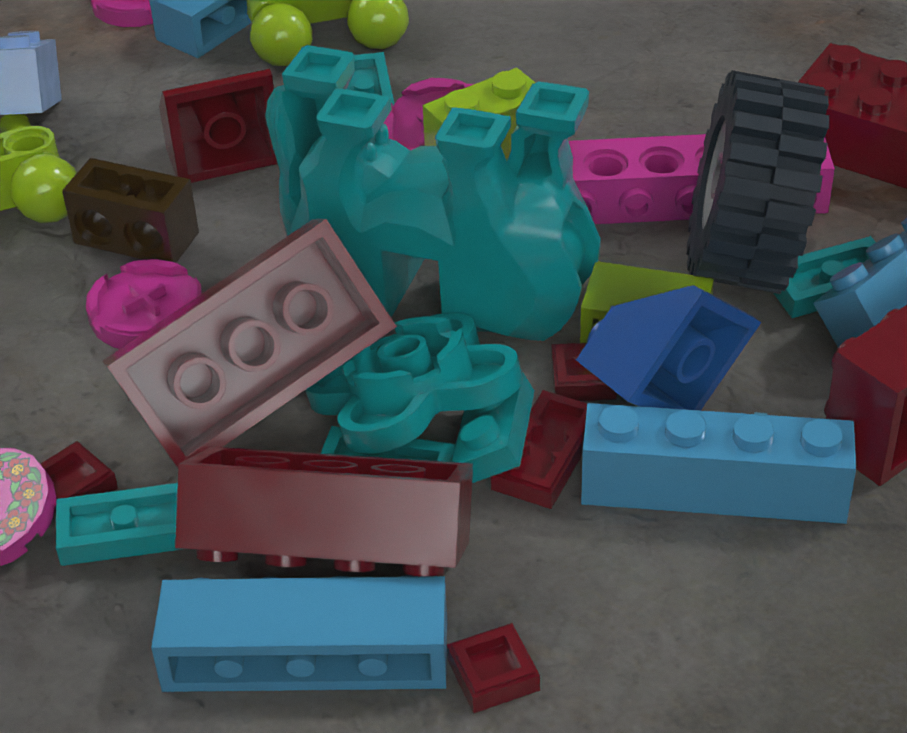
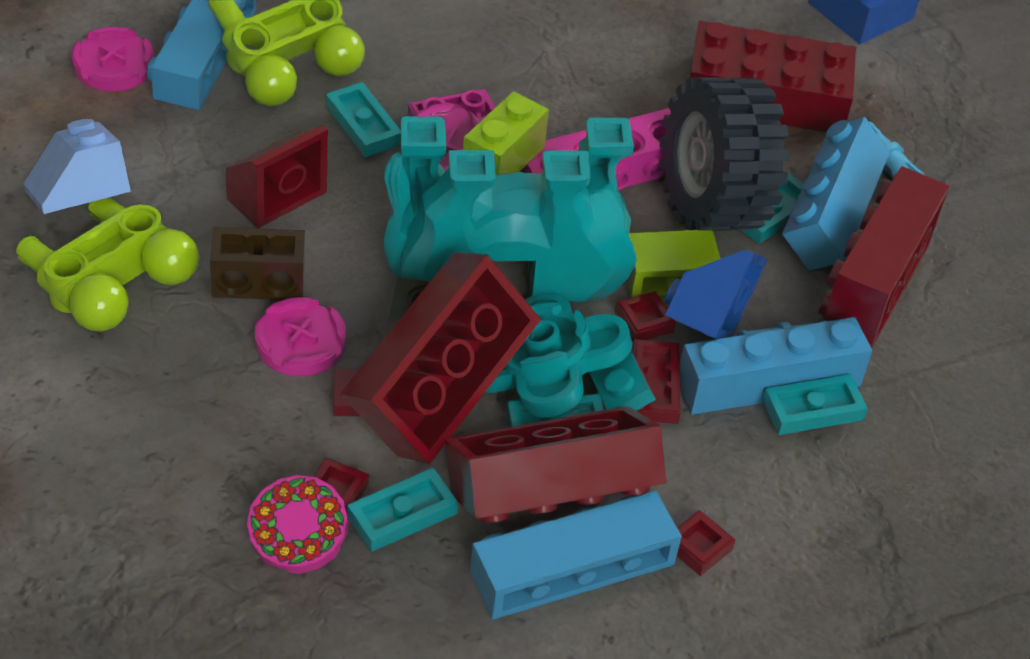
camera: 30 degrees left, 5 degrees up
(755, 527) = (814, 404): none -> teal plate

